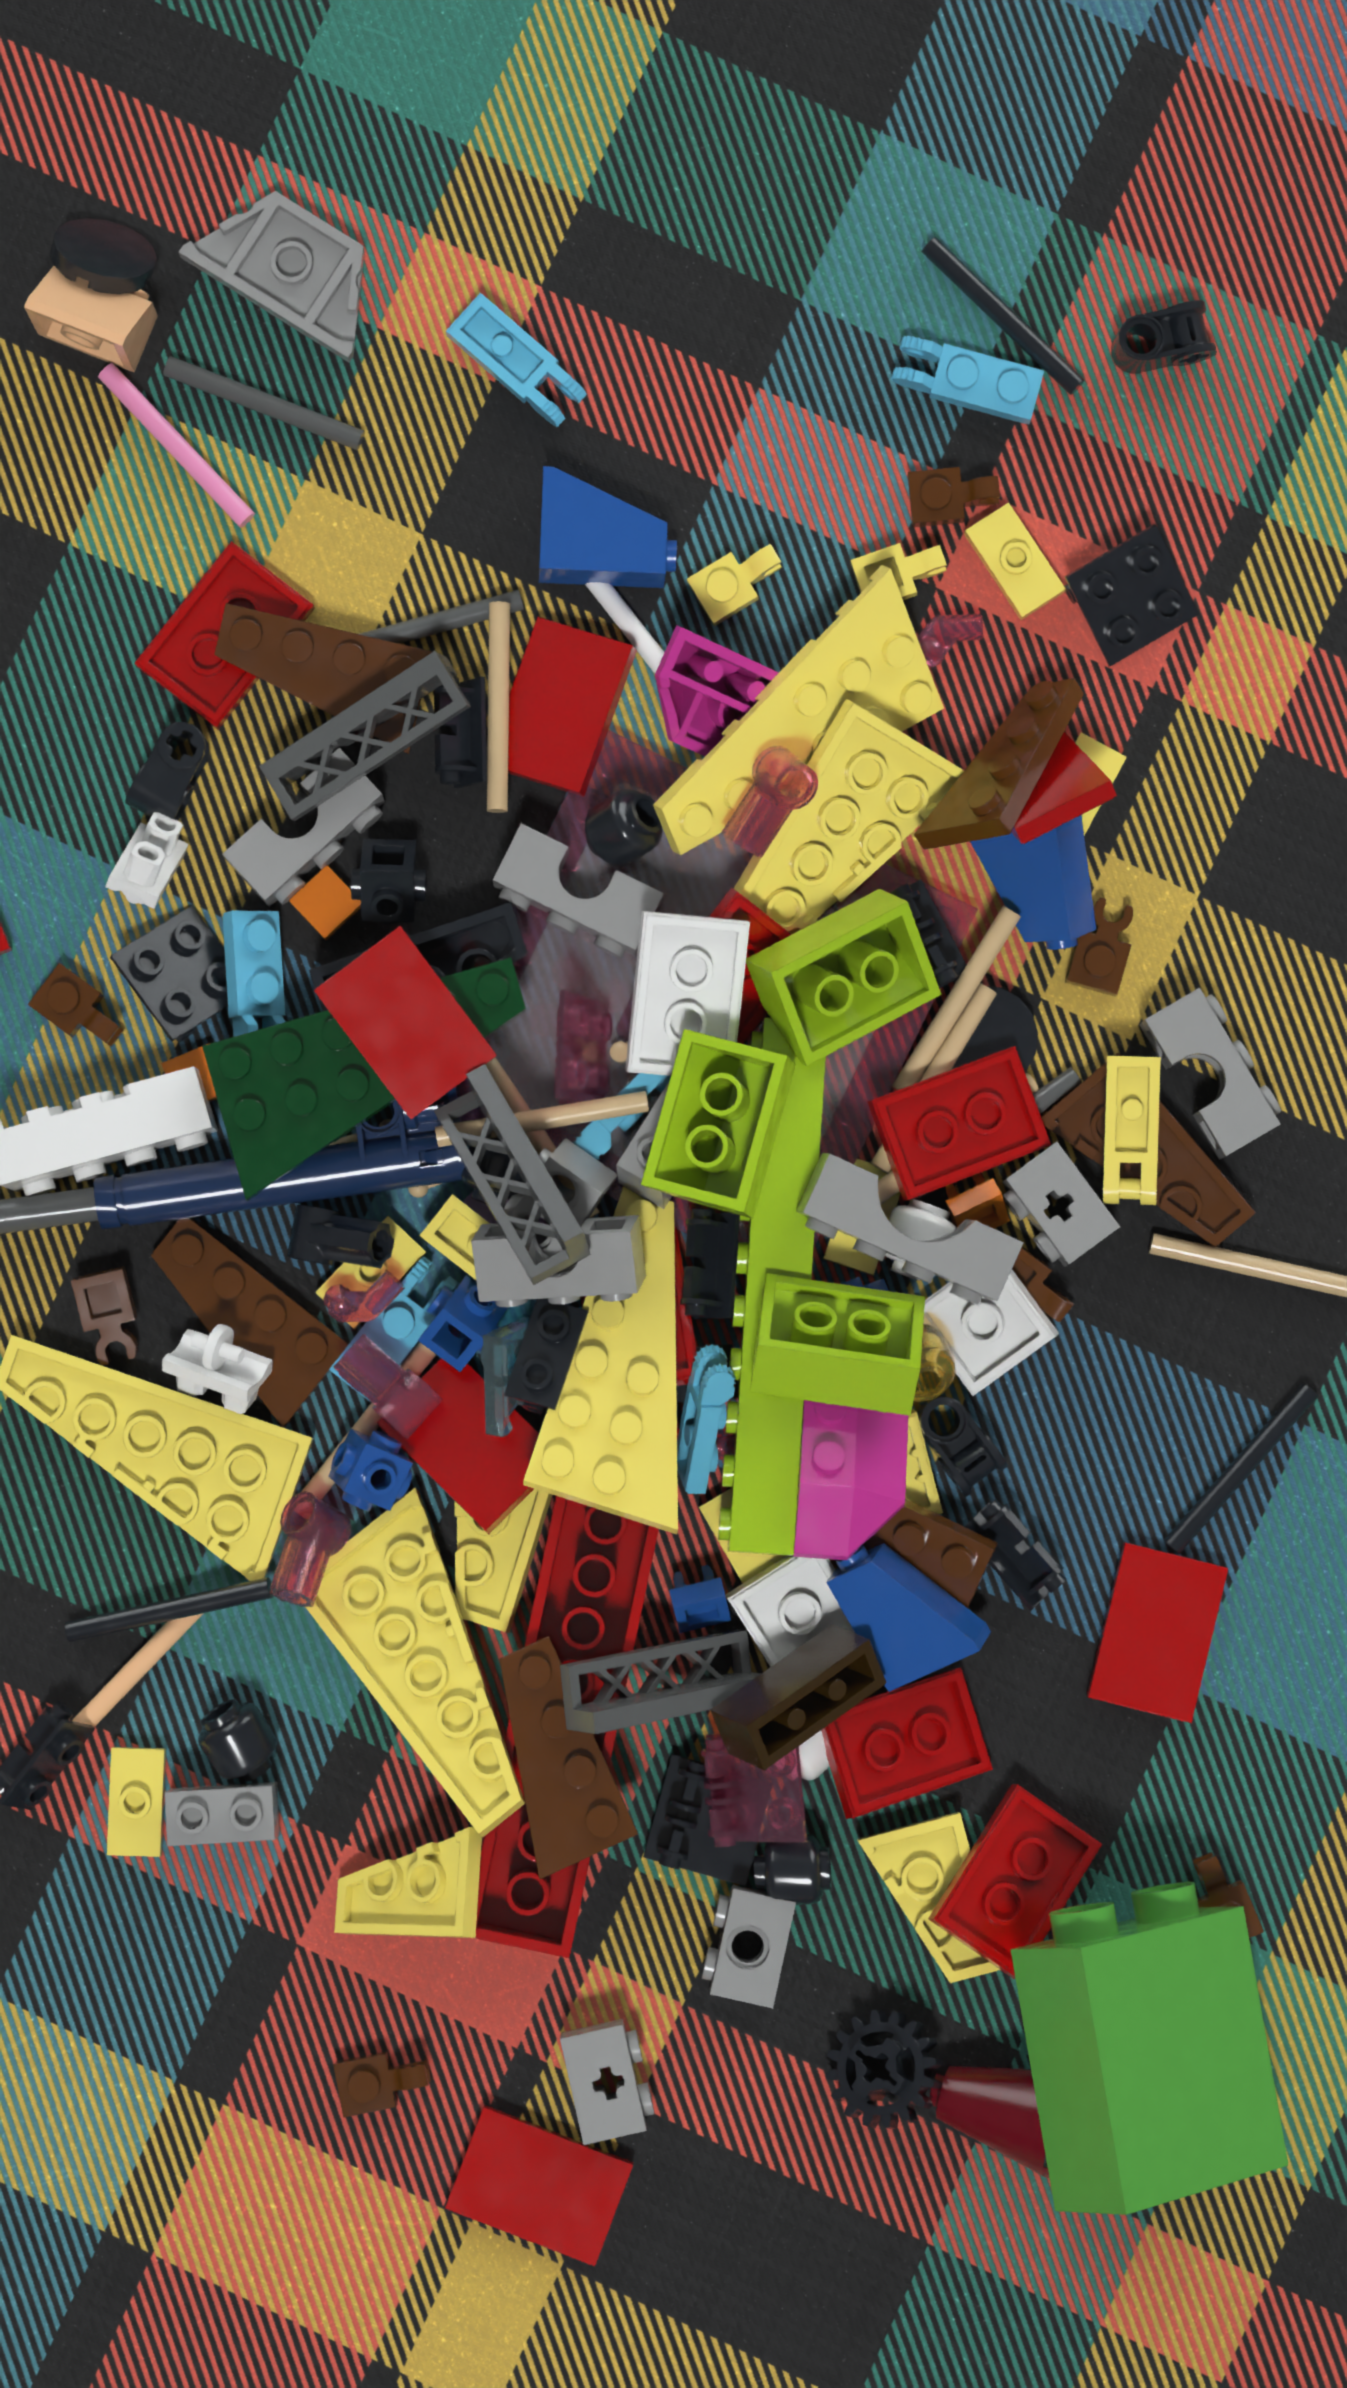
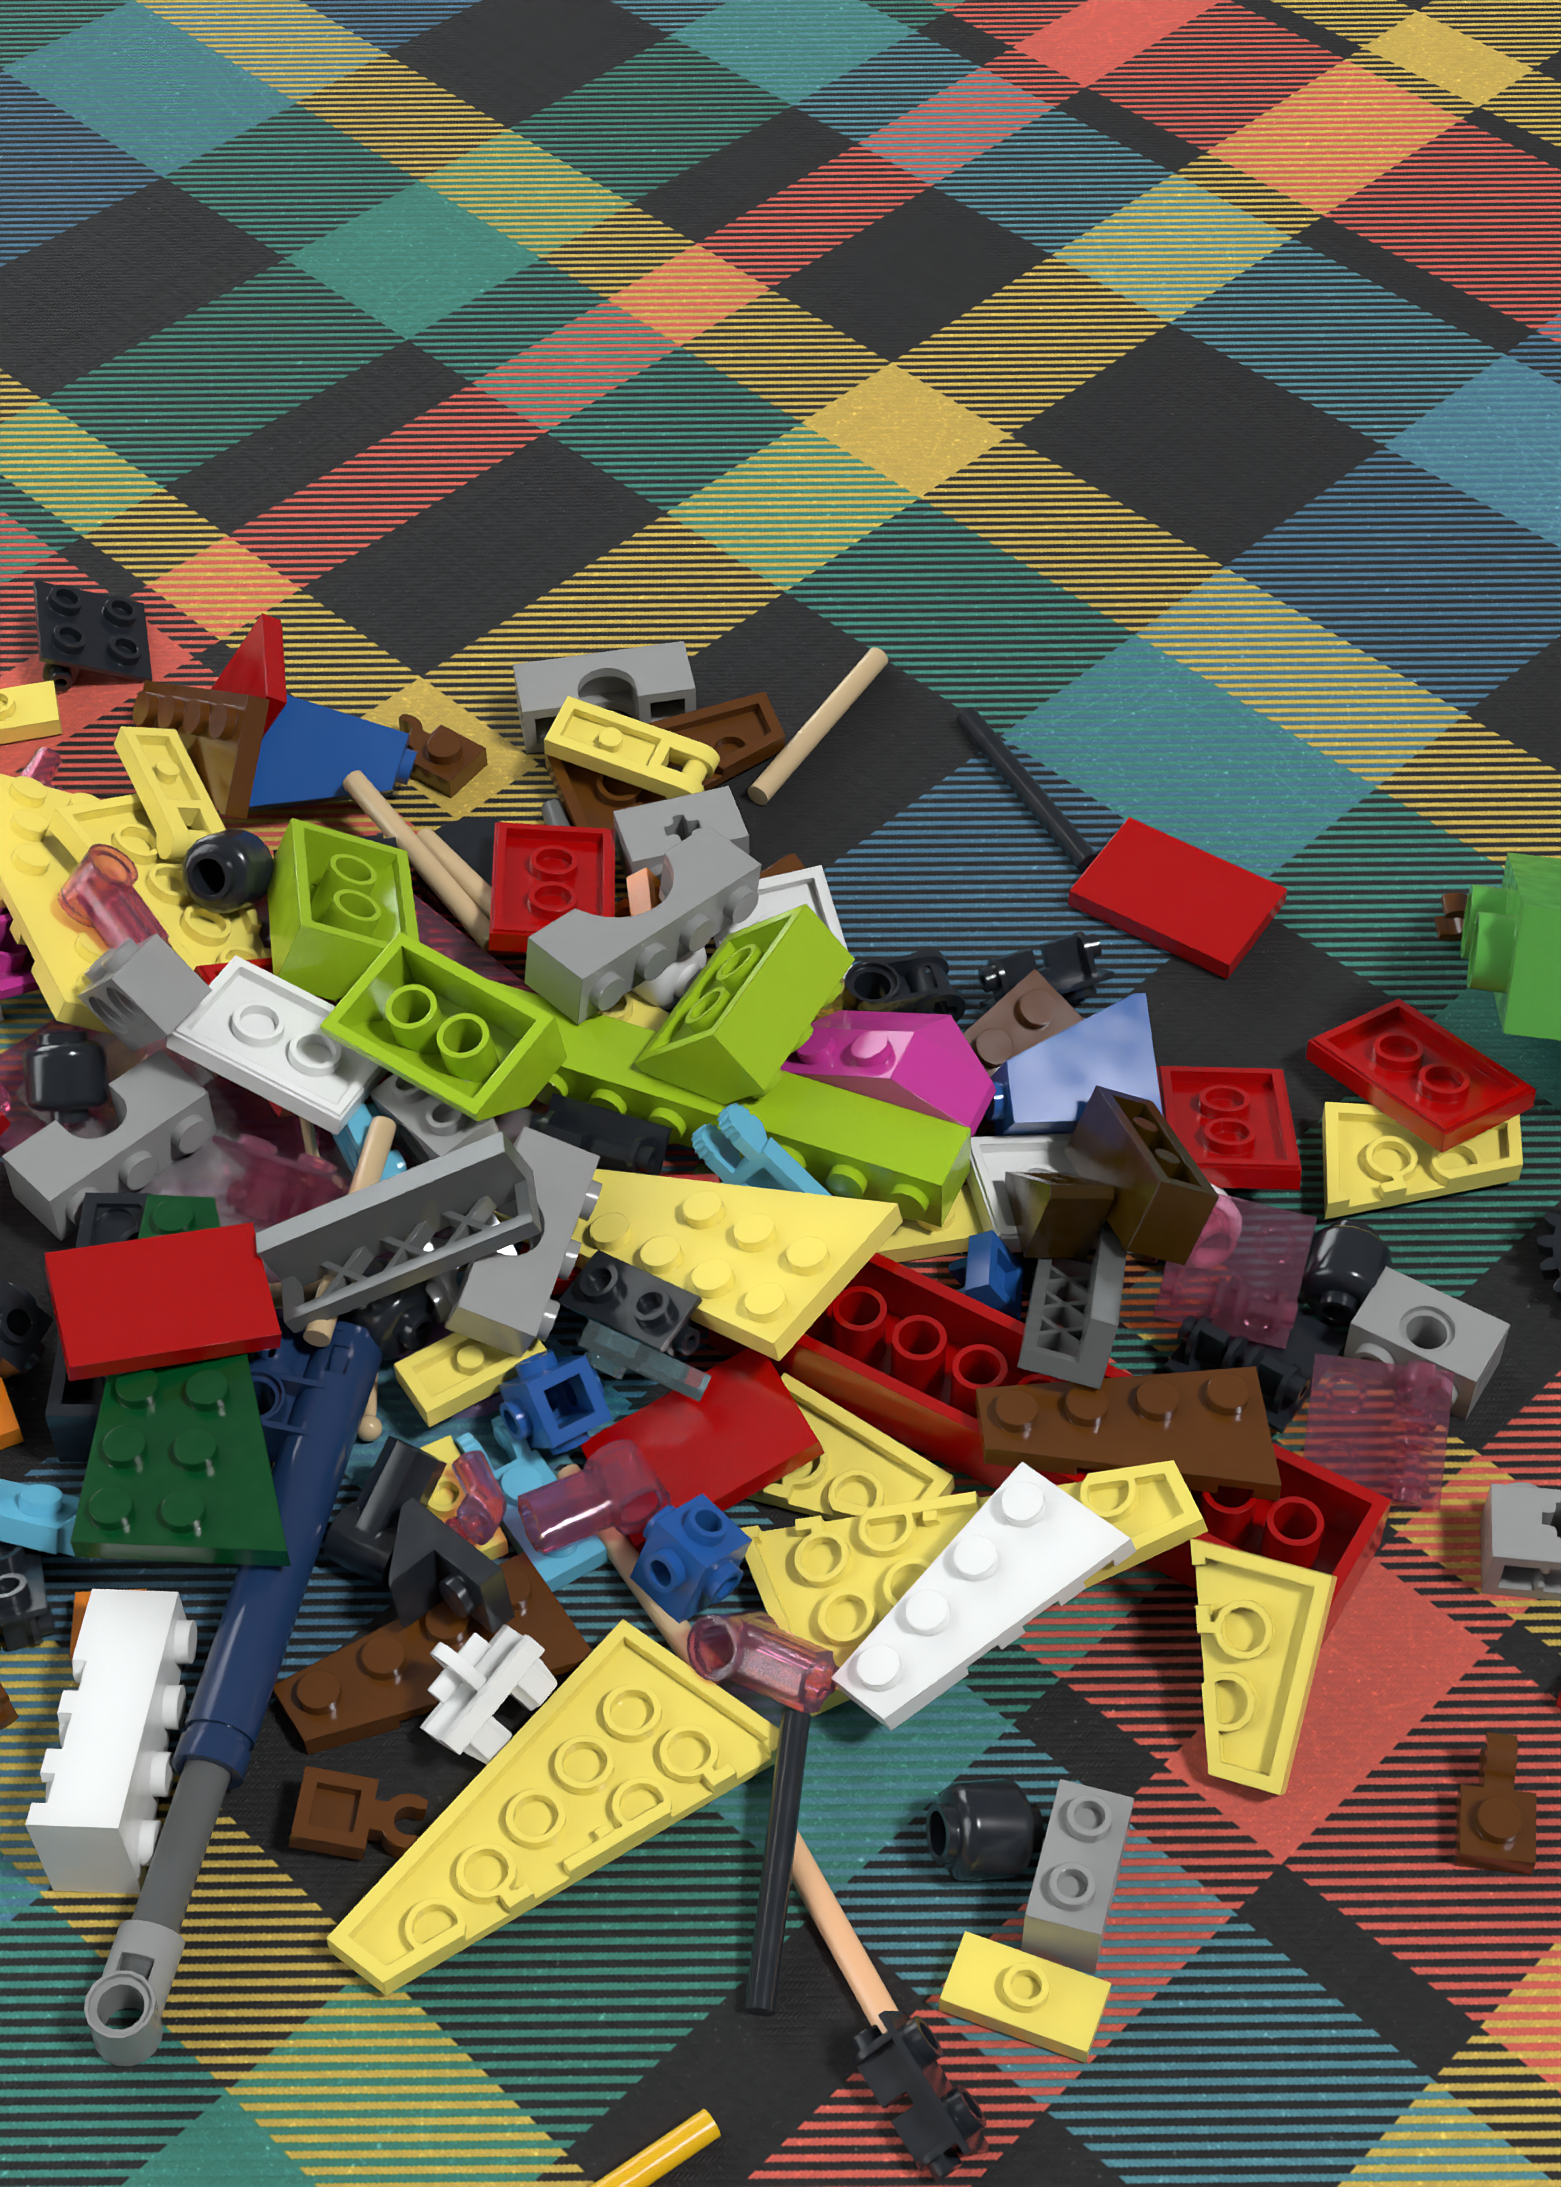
camera: 65 degrees left, 35 degrees down
(297, 1291) = (440, 1565): none -> black slope
(397, 1696) = (993, 1578): none -> white wing
(654, 1929) = (1381, 1425): none -> clear pink hinge
(674, 875) = (142, 990): none -> light grey brick
(767, 1634) = (1057, 1212): none -> dark brown slope
(858, 863) = (227, 870): none -> black head
(927, 776) = (167, 788): none -> light yellow plate

